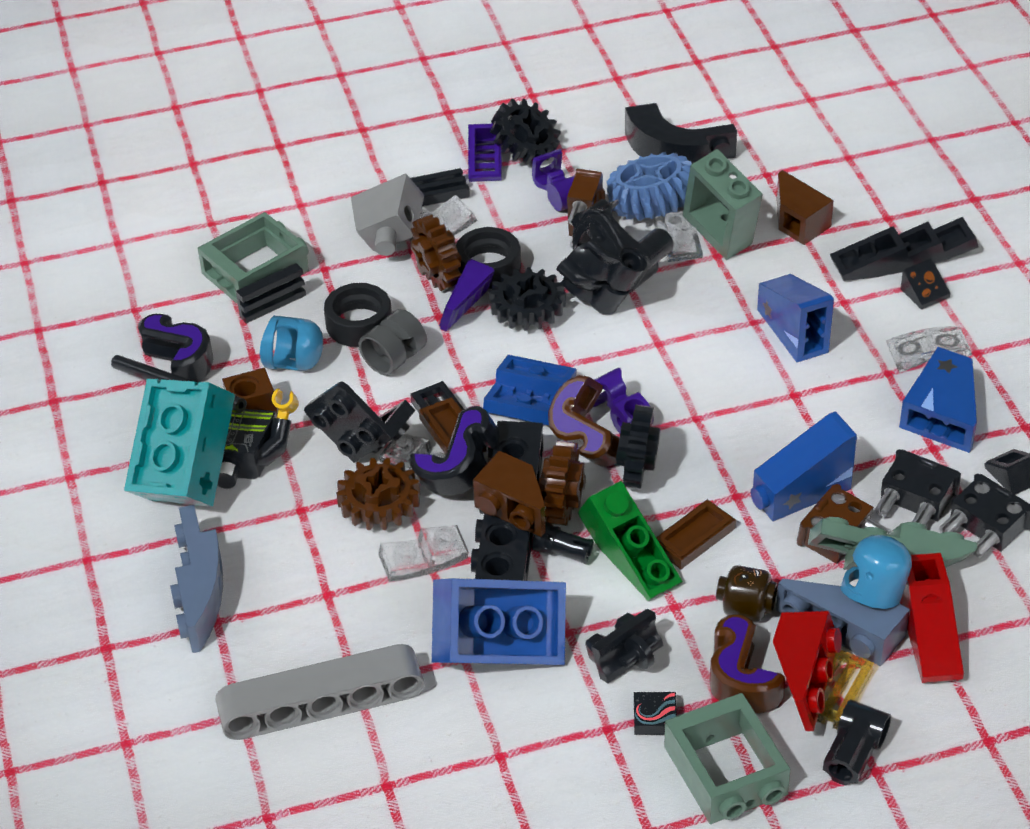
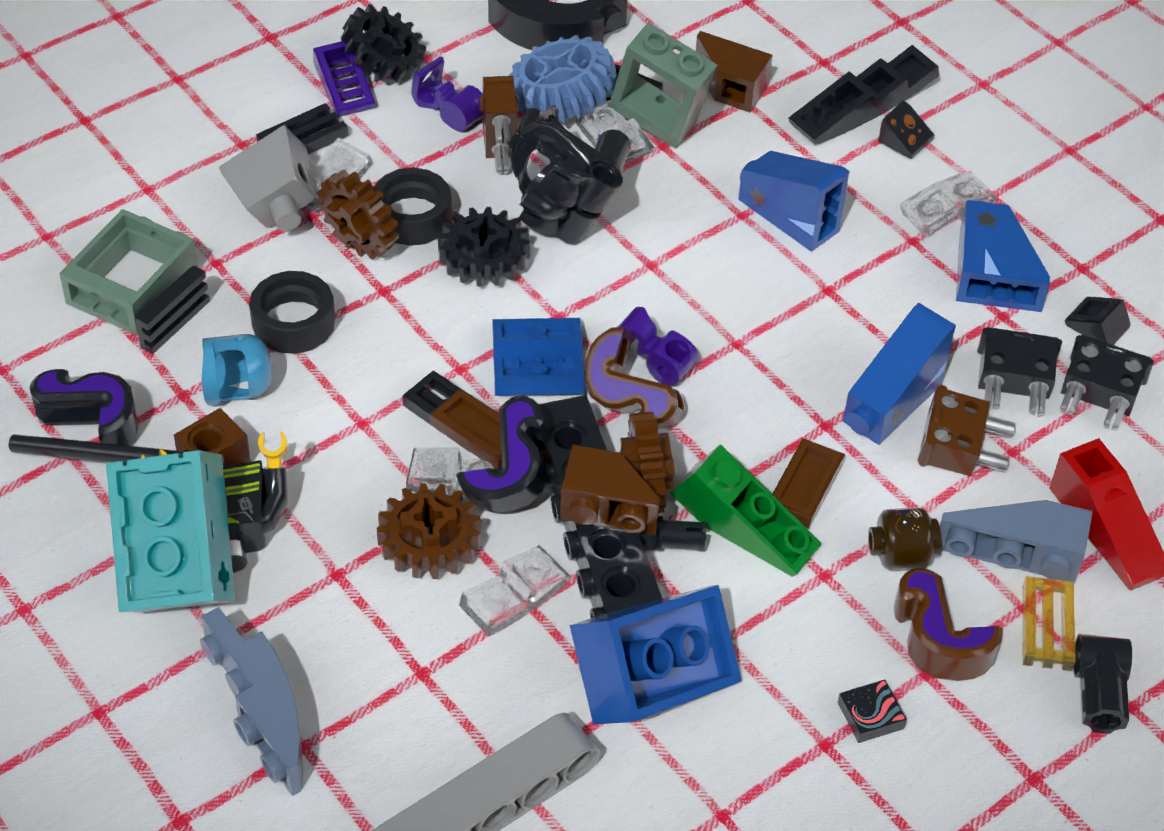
camera: 25 degrees left, 5 degrees up
(354, 424) = (370, 451): black bracket -> none
(392, 342) = (354, 337): dark grey wheel -> none
(469, 289) = (408, 254): dark purple slope -> none
(628, 645) = (811, 640): black hips -> none
(638, 446) = (709, 396): black gear -> none
(714, 724) = (956, 772): sand green window -> none
(806, 652) = (1005, 598): red slope -> none
(839, 536) = (1032, 448): sand green slope -> none
(881, 572) = (1061, 471): dark azure helmet -> none

